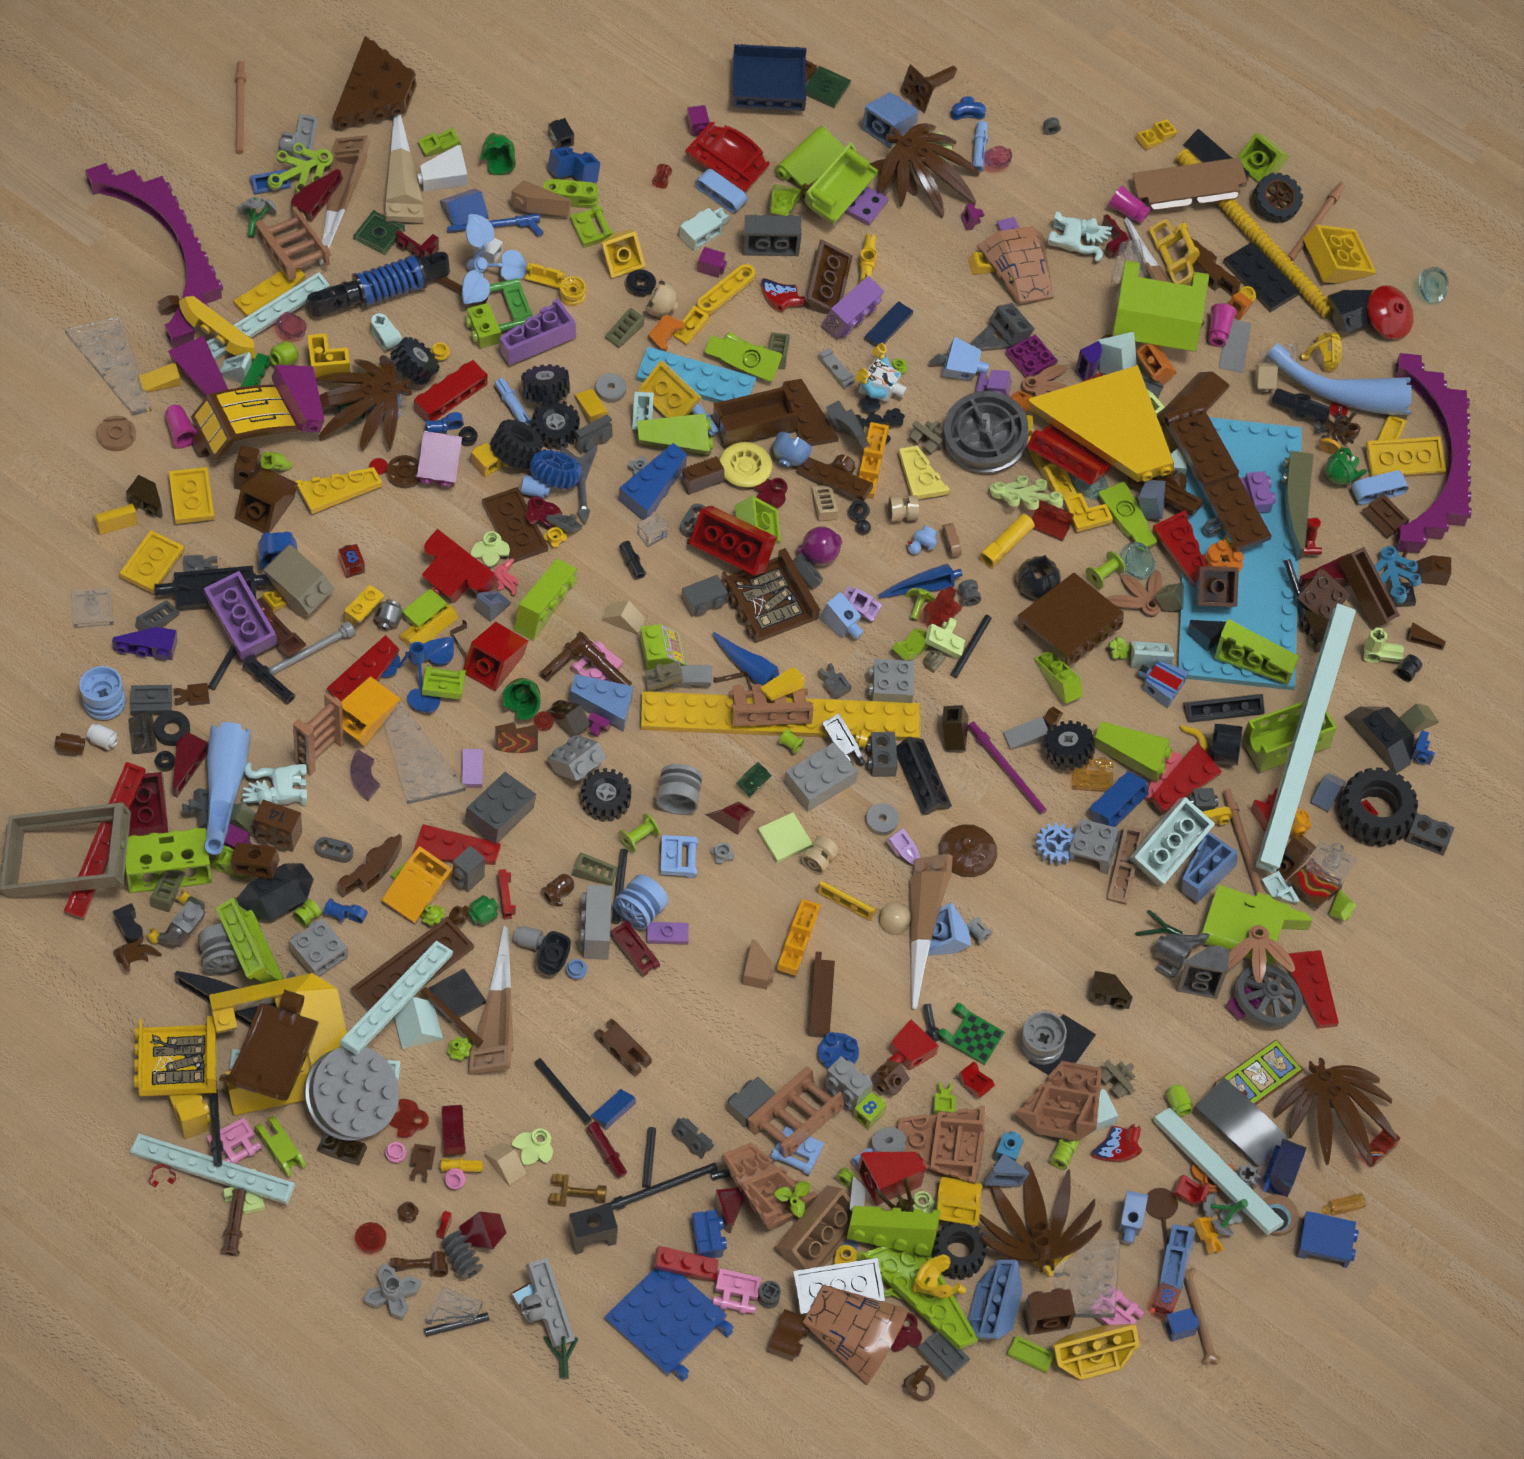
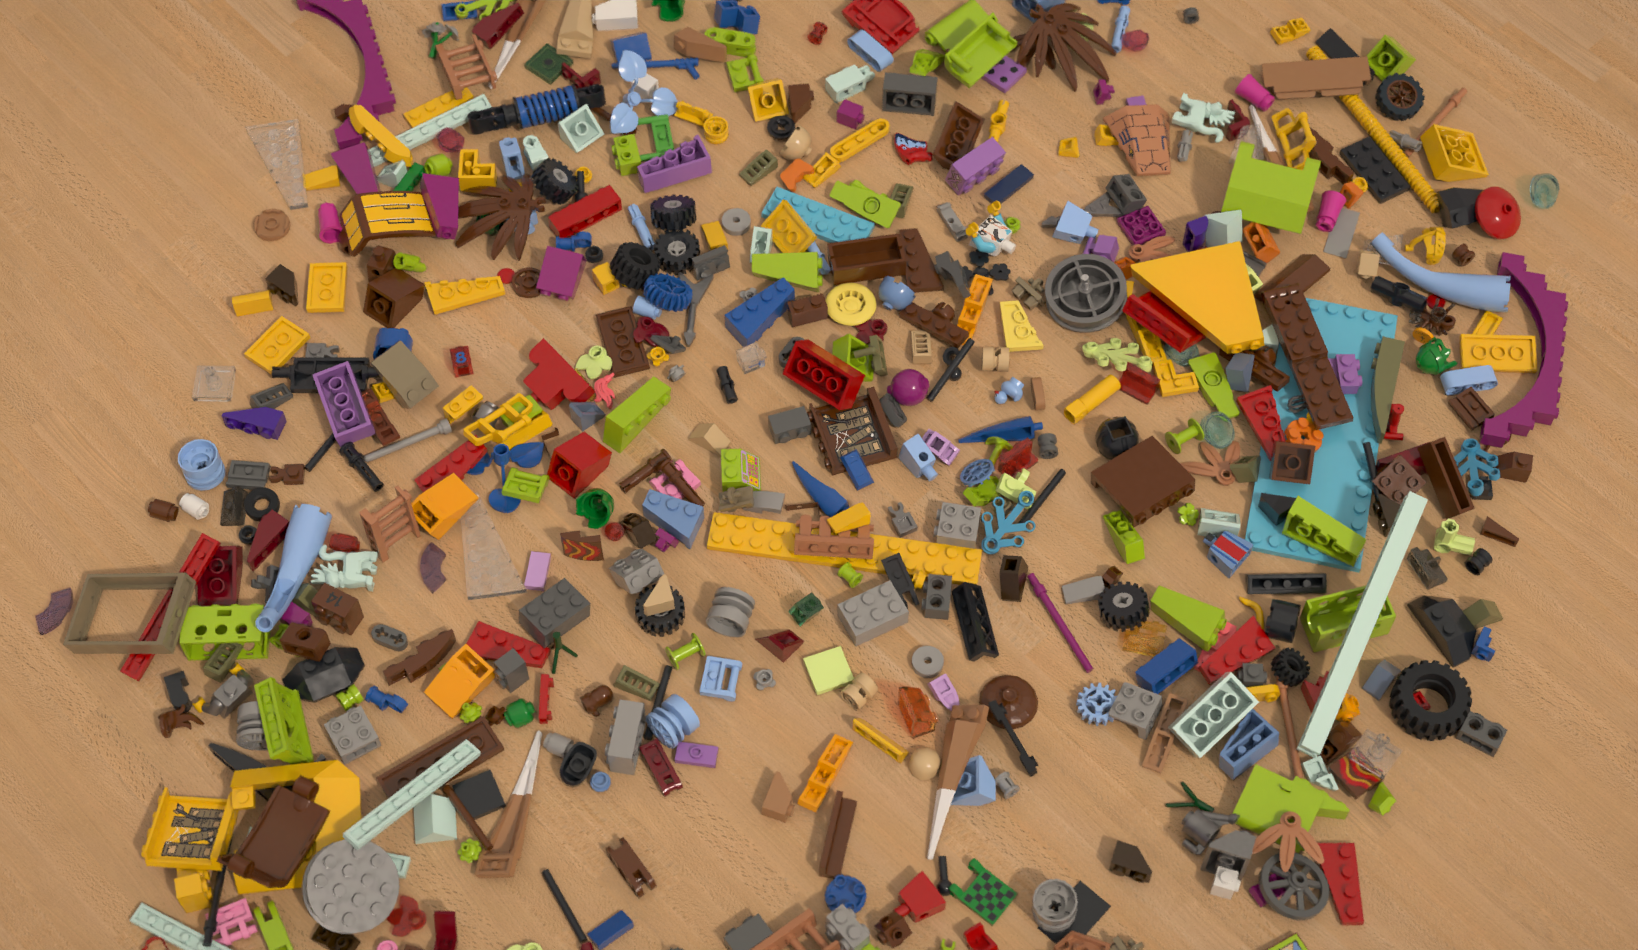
camera: 15 degrees right, 0 degrees up
(268, 759) = (344, 543): none -> clear red brick
(359, 331) = (511, 151): none -> light blue torso
(391, 623) = (499, 436): none -> yellow bar
(428, 302) = (579, 129): none -> light aqua slope
(442, 373) = (581, 190): none -> black bar
(511, 839) = (558, 646): none -> dark green plant
(578, 552) = (676, 373): none -> light grey plate
(608, 783) = (660, 598): none -> tan slope
(655, 251) = (800, 100): none -> reddish brown slope
(780, 508) = (875, 348): none -> olive plate
(780, 634) = (856, 469): none -> blue tile
(860, 523) = (949, 371): none -> black bar
(879, 868) = (916, 711): none -> clear orange slope
(901, 628) = (977, 473): none -> medium blue wheel
(939, 676) = (1006, 525): none -> dark azure plant
(944, 279) = (1069, 147): none -> yellow slope
(962, 861) = (999, 713): none -> black container
(1064, 267) = (1184, 146): none -> light grey axle
(1203, 1000) = (1225, 883): none -> white brick
(1239, 788) = (1295, 661): none -> black tyre
(1289, 244) = (1406, 141): none -> light grey axle
(1359, 678) = (1427, 567): none -> clear smoke panel
(1360, 359) = (1463, 254): none -> reddish brown wheel

